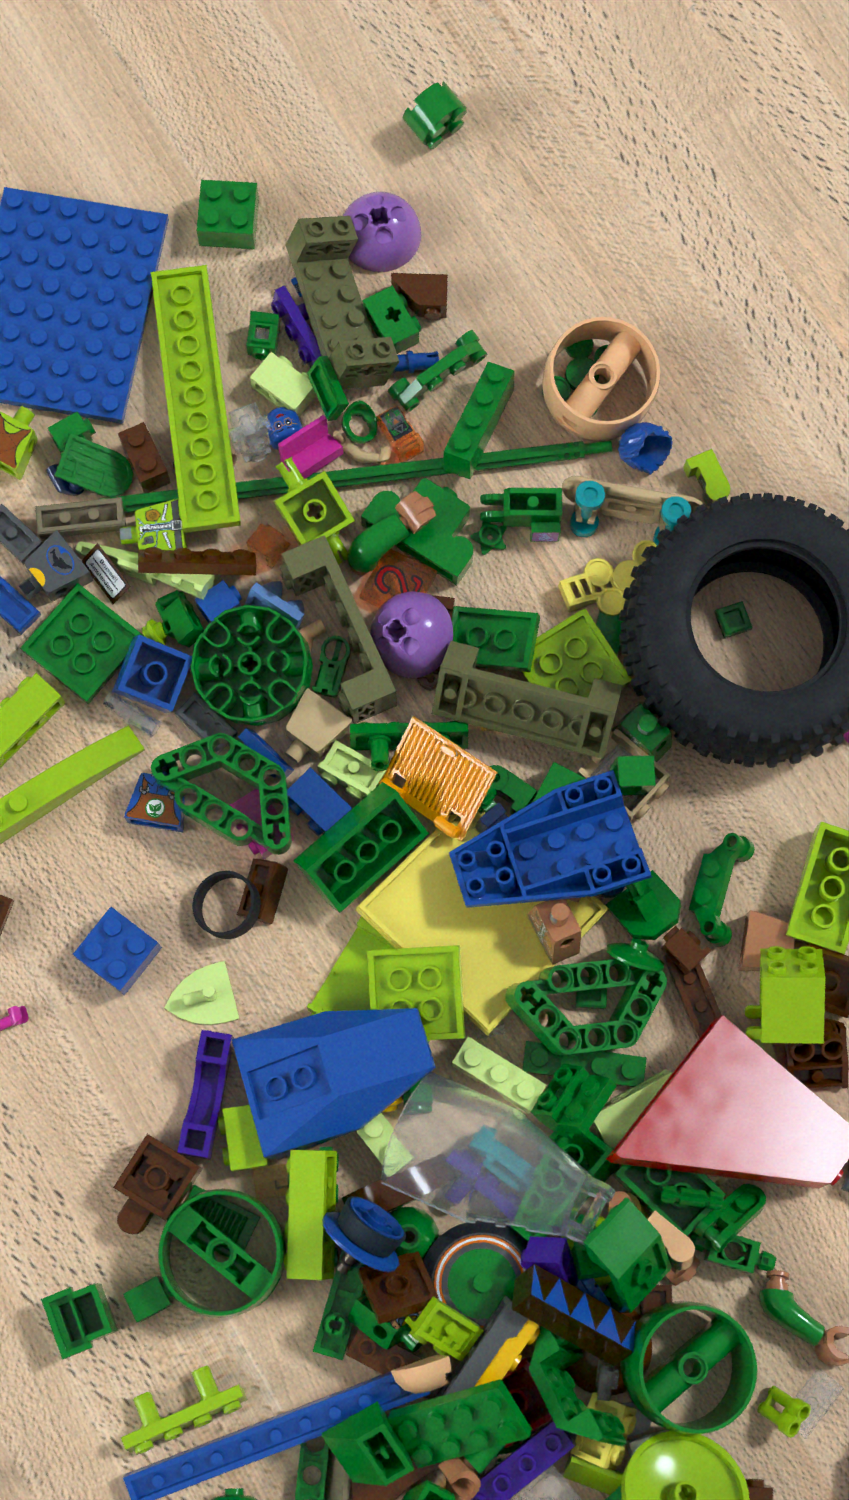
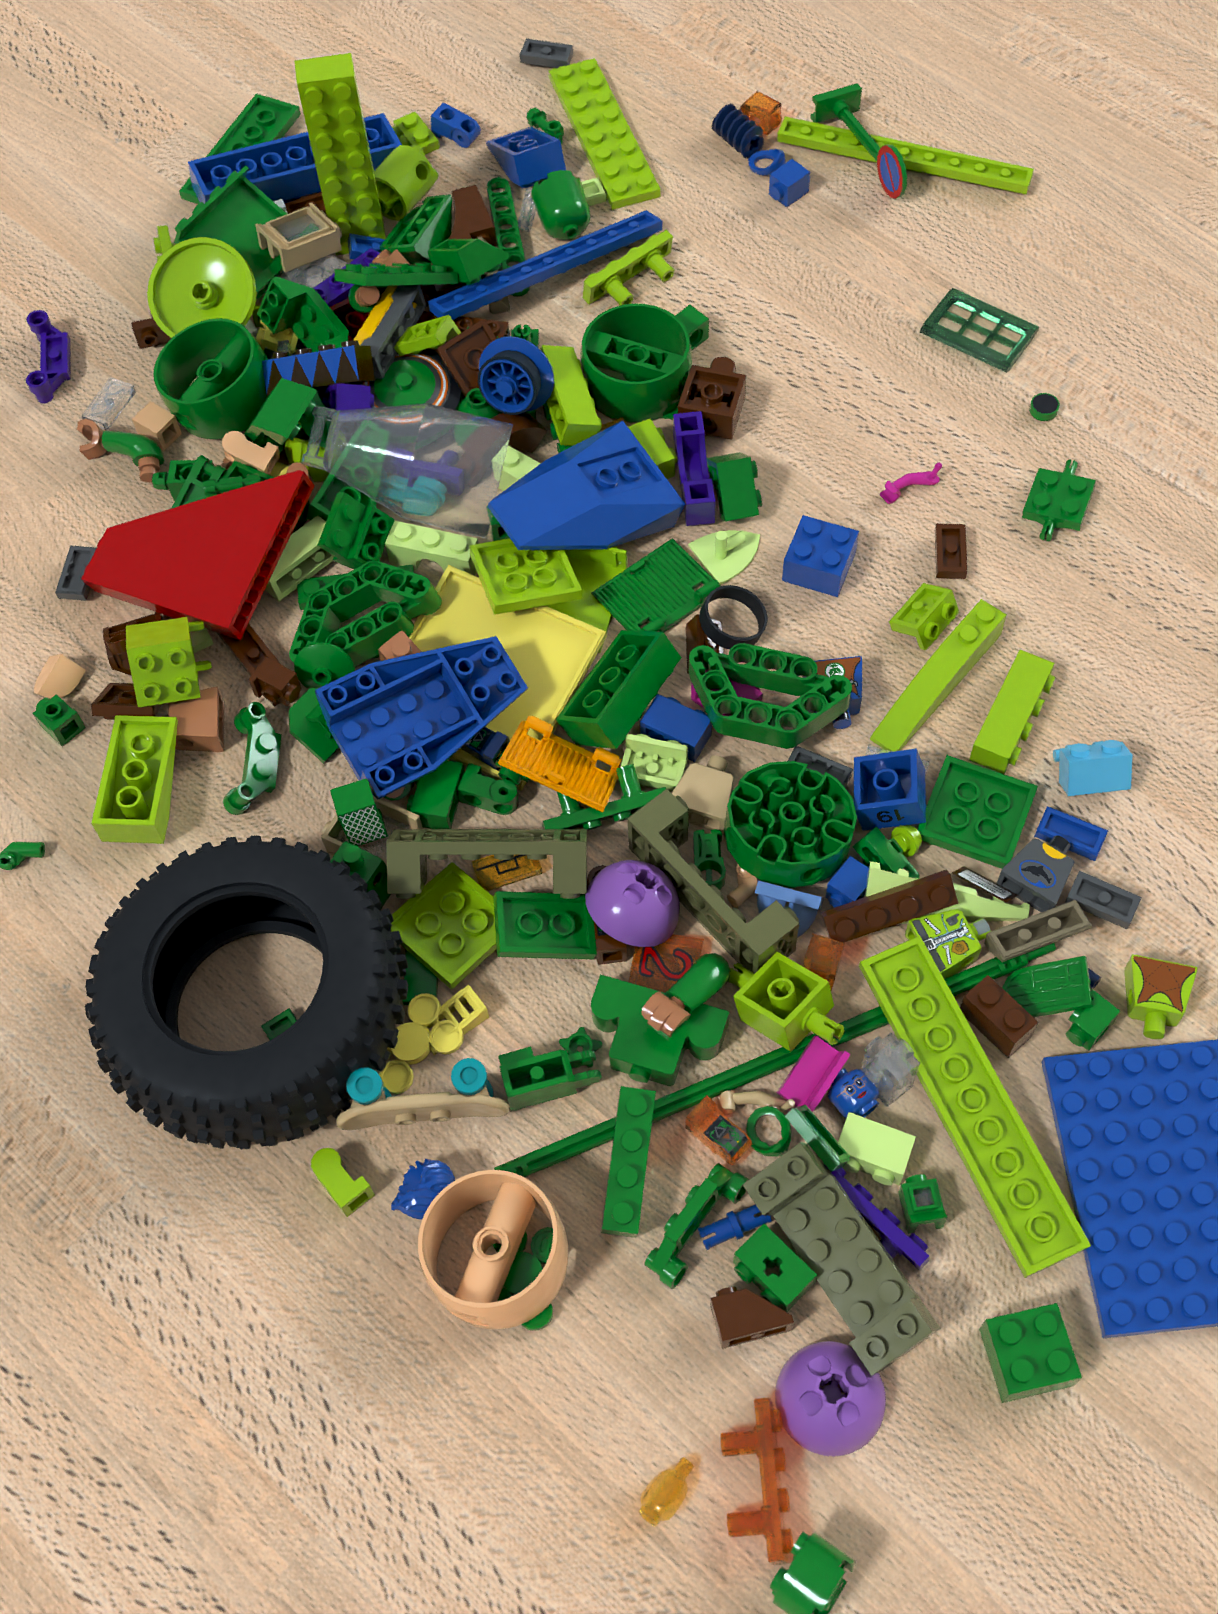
camera: 170 degrees right, 15 degrees down
(43, 858) = (926, 614): none -> lime bracket
(79, 1318) = (737, 301): green plate -> none
(172, 1061) = (735, 485): none -> green brick
(259, 745) = (742, 754): blue plate -> none
(287, 967) = (657, 590): none -> green window
(423, 1374) = (437, 302): light nougat brick -> none
(439, 210) = (770, 1519): none -> clear orange plate
(517, 200) = (665, 1493): none -> clear yellow plant
(766, 1343) = (157, 425): none -> light nougat brick
(791, 1417) = (121, 381): lime piece -> none

